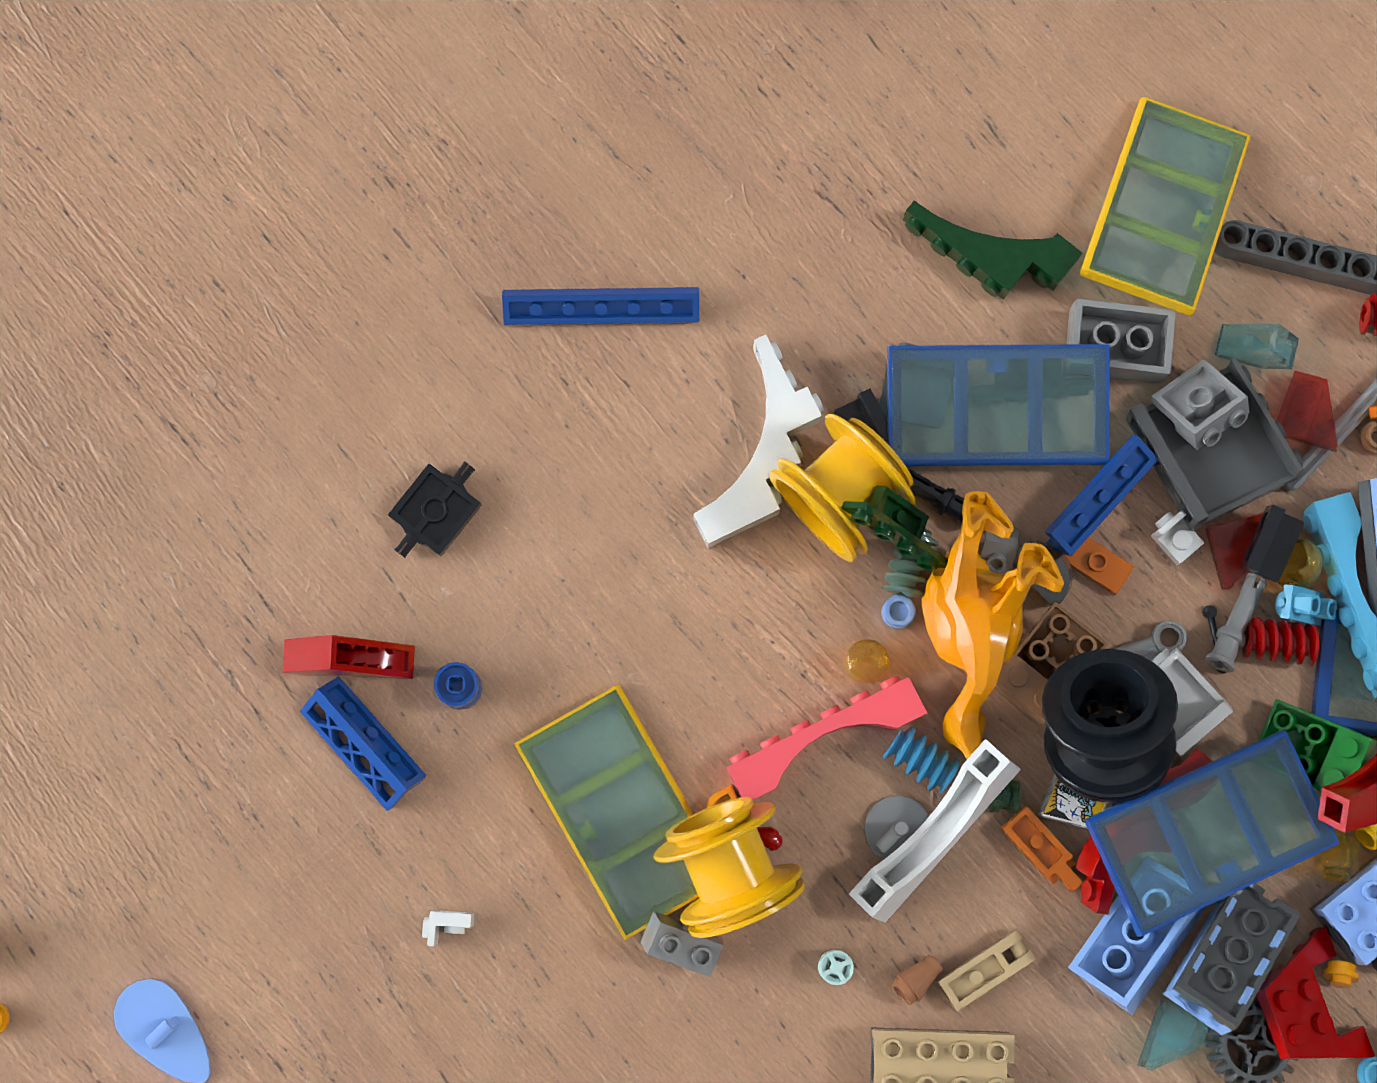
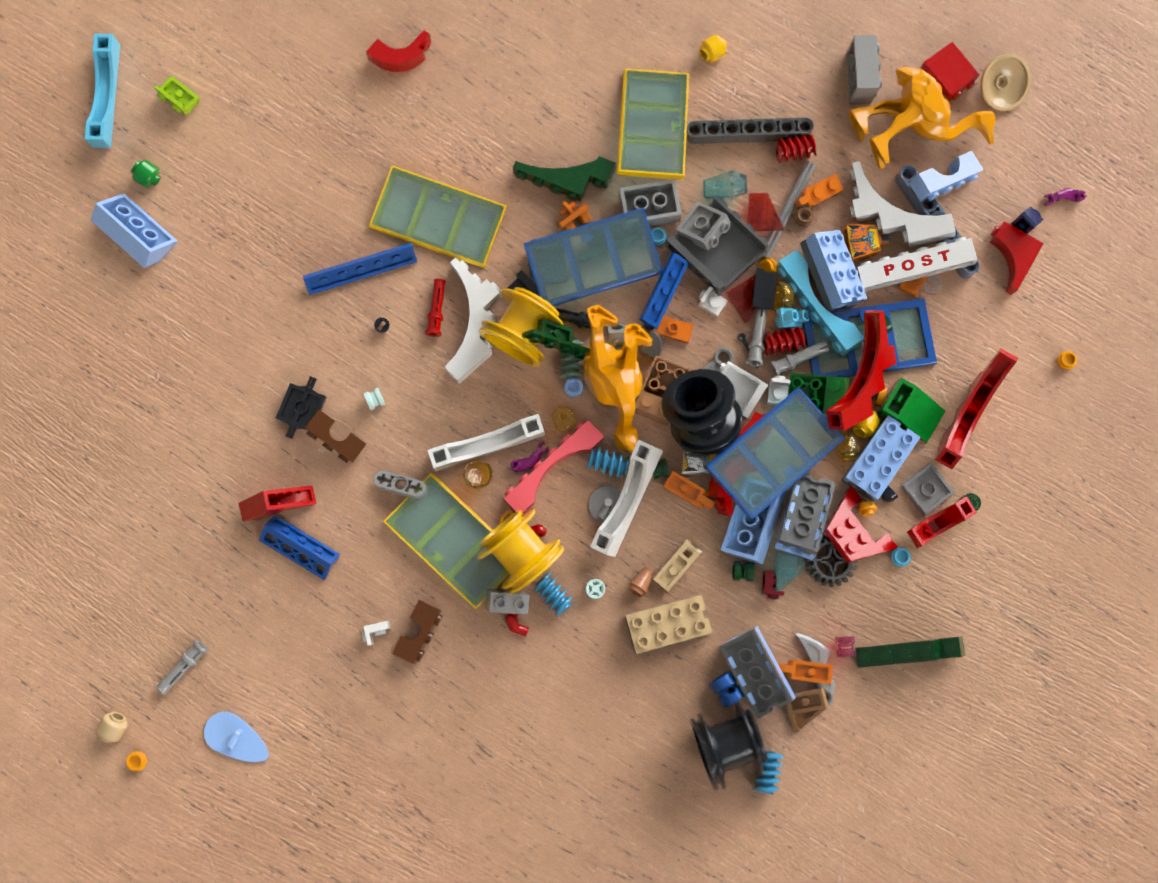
camera: 20 degrees left, 0 degrees up
(125, 877) = (188, 660): none -> light grey pin
(247, 131) = (132, 229): none -> light blue slope
(295, 44) = (145, 173): none -> green head
(458, 685) = (342, 499): blue wheel -> none
(492, 602) = (320, 427): none -> reddish brown arch
(496, 972) = (412, 649): none -> reddish brown arch
(560, 531) = (374, 398): none -> light aqua wheel
(585, 694) = (406, 491): none -> light grey beam
(611, 418) = (377, 323): none -> black hinge
(681, 989) = (514, 626): none -> red arm
(695, 712) = (477, 474): none -> clear yellow hair
(704, 425) = (436, 317): none -> red pin
(726, 664) = (465, 450): none -> white arch
(756, 256) = (438, 216): none -> clear light blue door
(763, 956) = (553, 594): none -> dark azure piece
(787, 717) = (528, 463): none -> magenta arm
(997, 320) = (580, 213): none -> orange hips
(1096, 1015) = (743, 571): none -> dark green wheel
(1120, 398) = (659, 236): none -> medium azure plate
(1135, 1047) = (768, 583): none -> dark red bracket
(1245, 722) = (777, 389): none -> white bracket
(1282, 680) = (790, 361): none -> light grey pin
(1292, 502) = (768, 265): none -> light orange plate
(1304, 106) = (713, 48): none -> yellow head

